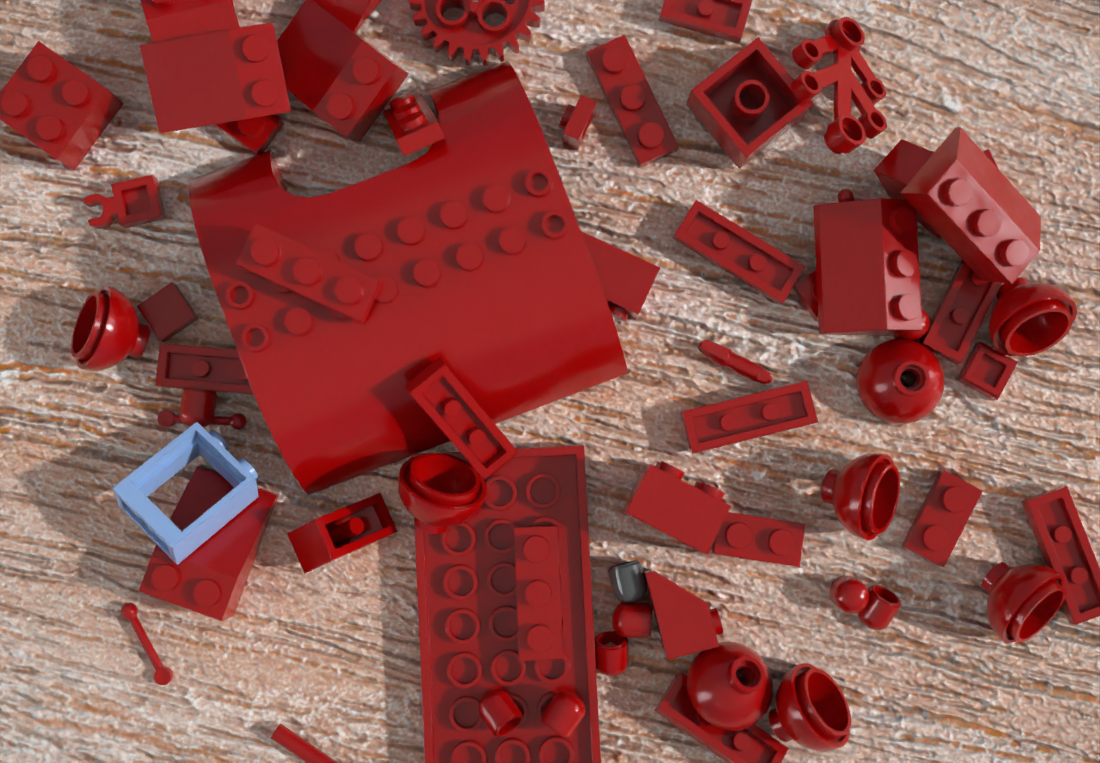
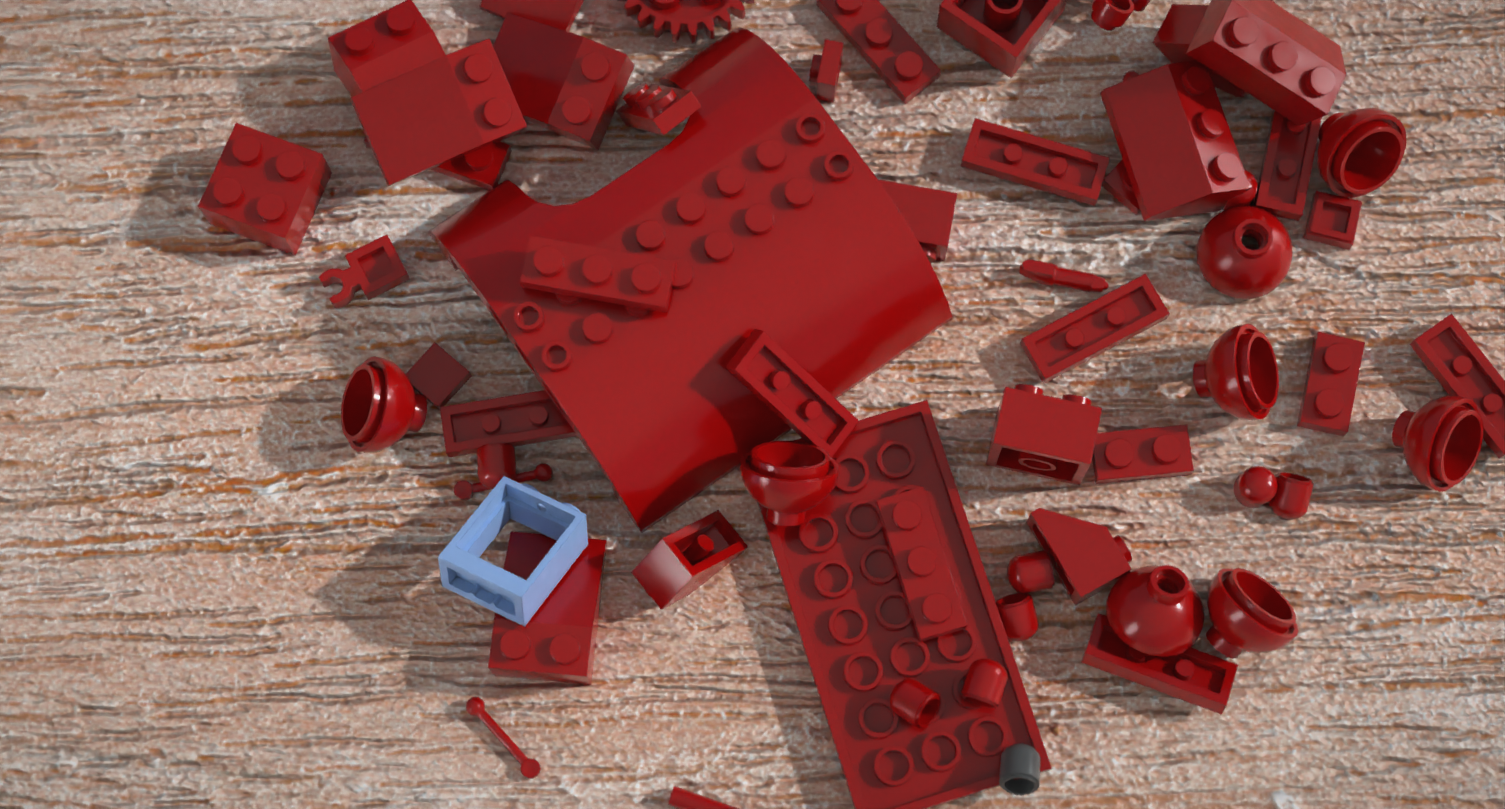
camera: 15 degrees left, 10 degrees down
(628, 581) = (1013, 532): dark grey piece -> none

